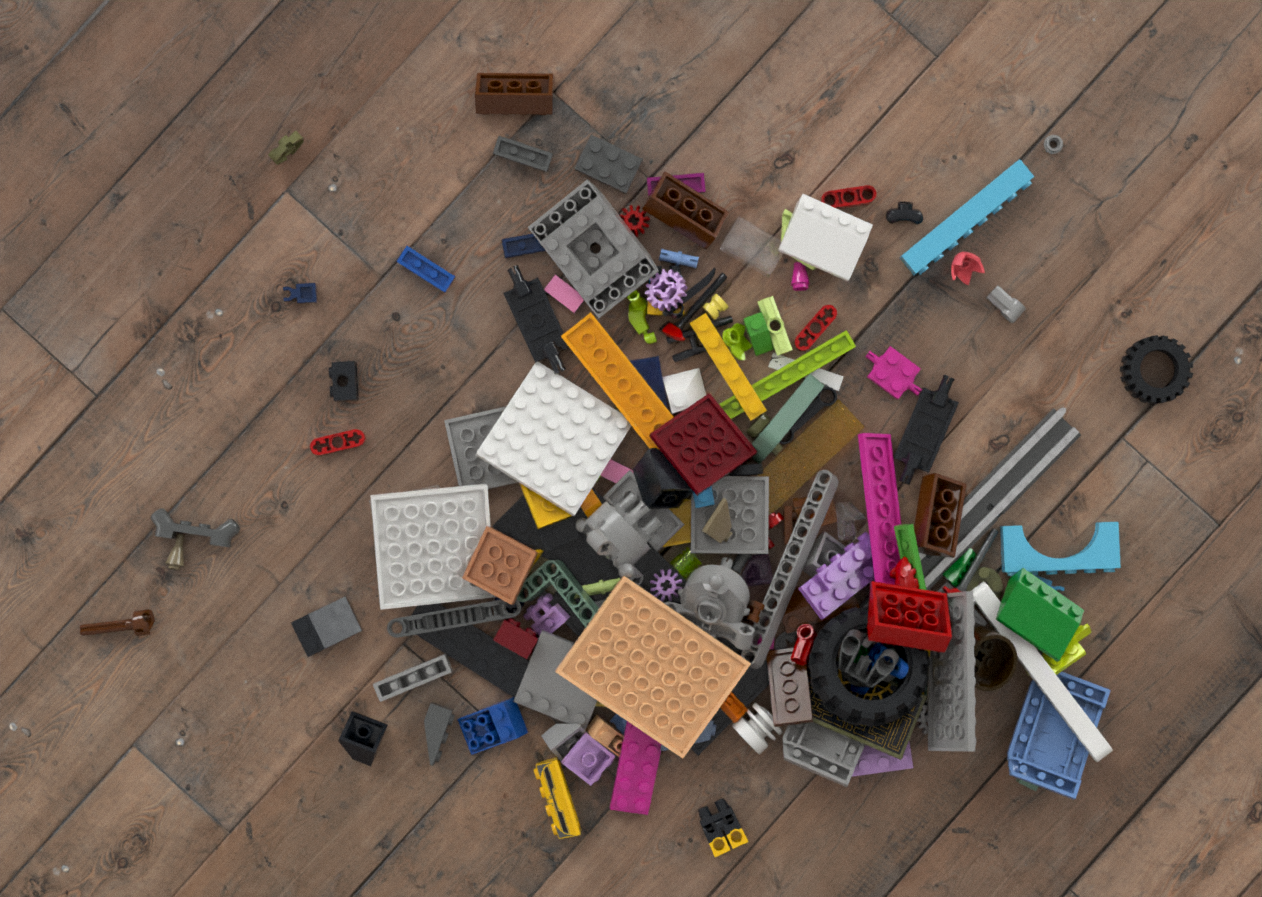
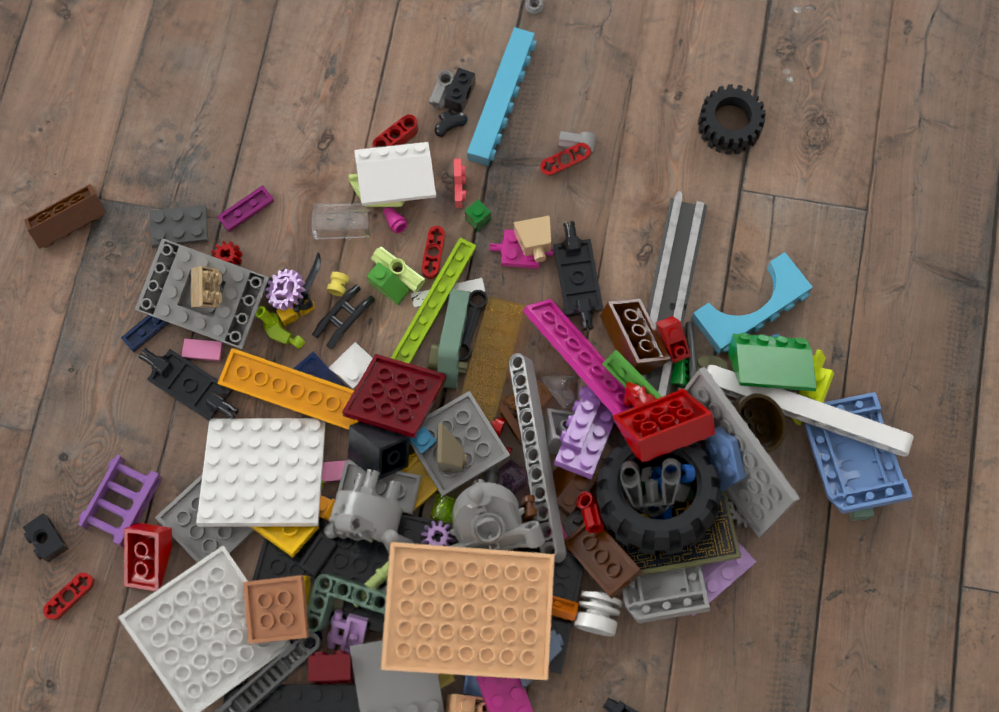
camera: 30 degrees left, 15 degrees down
(419, 449) = (146, 555): none -> red slope
(424, 406) = (140, 499): none -> medium lavender fence
(426, 269) = (67, 400): blue plate -> none
(523, 154) = (99, 259): dark grey plate -> none
(597, 252) = (205, 287): none -> tan slope
(675, 330) = (315, 321): black piece -> none
(678, 258) = (281, 264): light blue pin -> none
(685, 210) = (264, 222): reddish brown slope -> none
(728, 366) = (378, 323): yellow plate -> none
(736, 341) = (369, 297): lime plate -> none
(749, 469) = (446, 396): black tyre -> none
(874, 319) = (477, 215): none -> green brick
(880, 275) = (459, 179): none -> coral plate
(910, 373) = (534, 237): none -> tan torso
(916, 179) = (437, 98): none -> light grey piece
(932, 189) = (460, 90): none -> black brick
(942, 674) = (726, 456): none -> medium blue wing
(963, 266) = (524, 131): coral piece -> none
(969, 539) = (673, 338): none -> red slope
(999, 312) = (580, 158): none -> red beam

